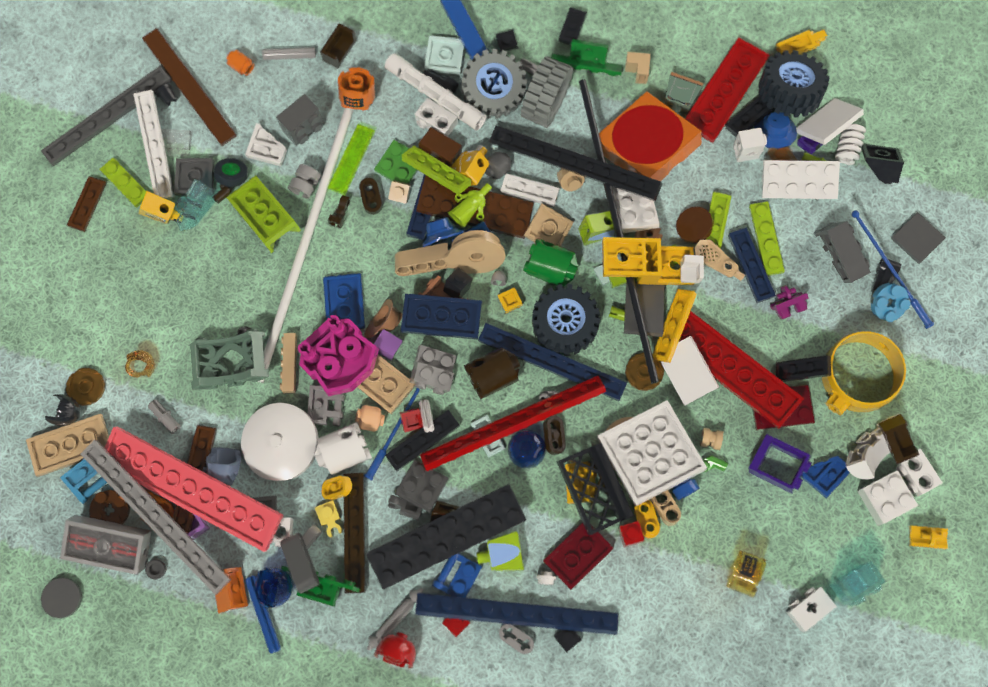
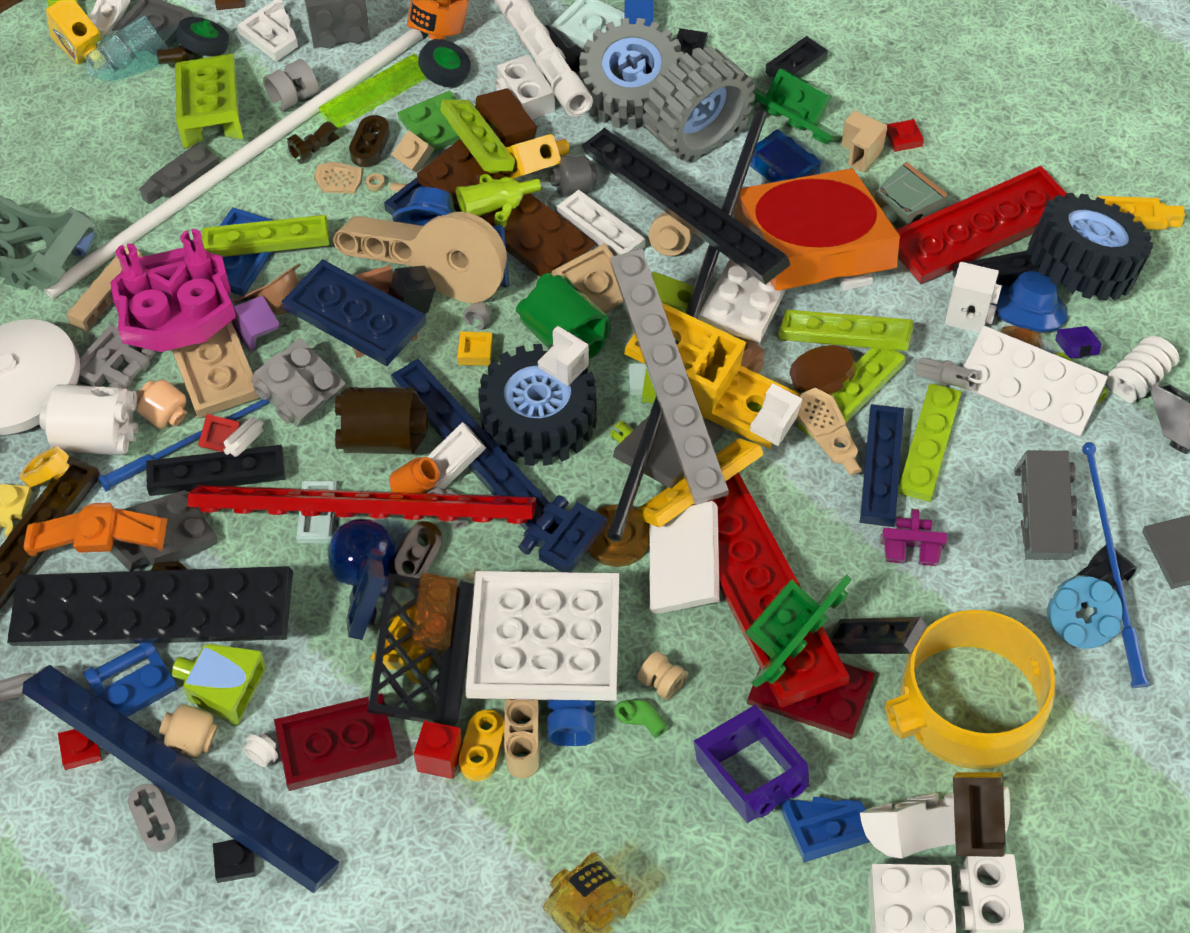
camera: 25 degrees right, 20 degrees down
(278, 268) = (179, 173): none -> dark grey hinge
(356, 288) = (266, 236): none -> lime tile
(357, 230) = (323, 174): none -> tan piece
(380, 123) = (444, 63): none -> black wheel
(391, 509) = (96, 529): none -> orange plate
(506, 588) = (188, 730): none -> tan head
(529, 395) = (415, 476): none -> orange brick
(539, 373) = (456, 454): none -> white tile
(550, 474) = (365, 595): none -> dark blue plate
(570, 292) = (566, 357): none -> white panel
(591, 467) = (434, 611): none -> clear orange plate
(606, 101) = (783, 159): none -> clear blue brick
(629, 389) = (570, 540): none -> dark blue plate
(634, 279) = (669, 377): none -> light grey plate
(655, 49) = (904, 135): none -> red plate
(693, 193) = (846, 329): none -> lime tile
(756, 195) = (946, 373): none -> light grey axle
(765, 385) = (787, 621): none -> green bracket
(829, 121) = (1124, 322): white tile -> none

